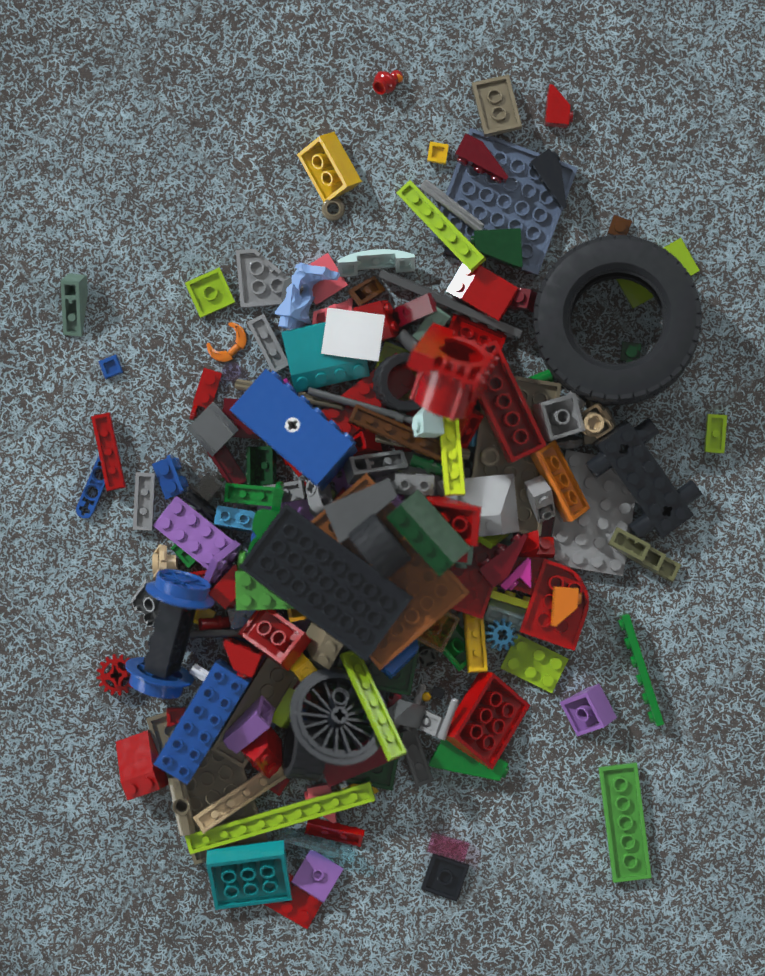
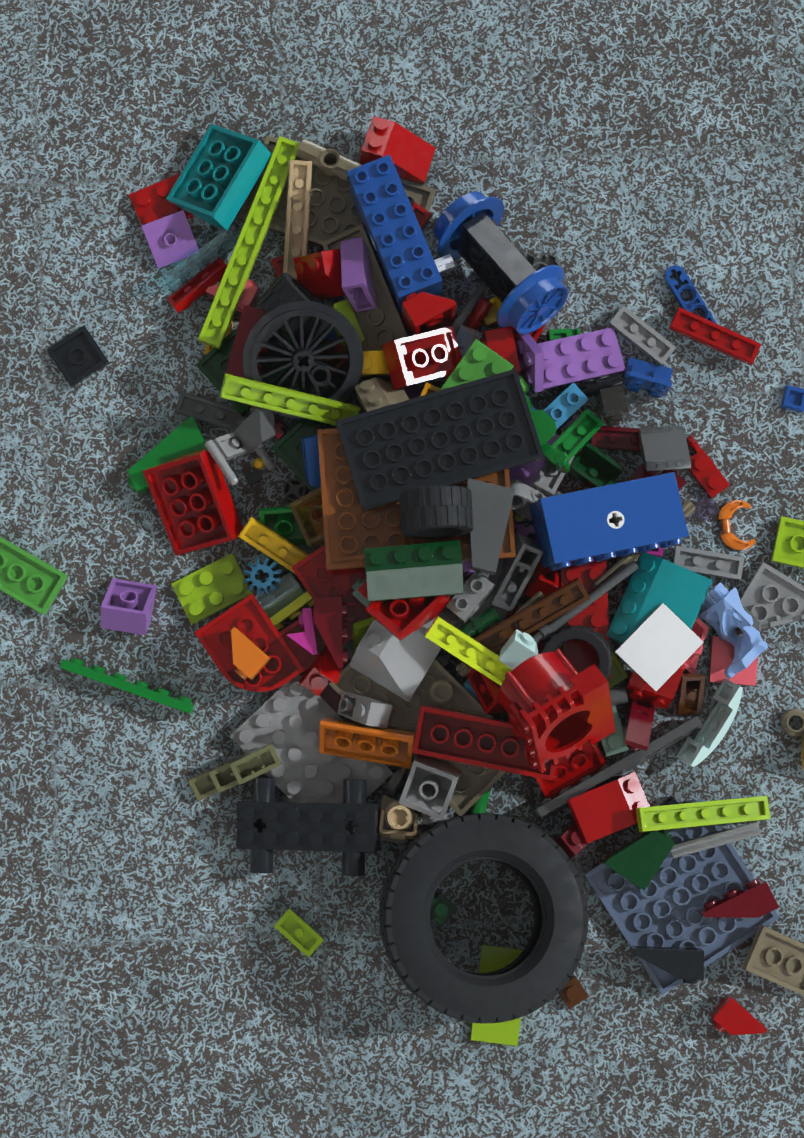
camera: 130 degrees right, 5 degrees down
(118, 684) = (501, 181): red gear -> none
(161, 560) = (571, 311): tan piece -> none
(437, 153) = (776, 866): yellow plate -> none
(448, 846) = (103, 379): clear pink plate -> none

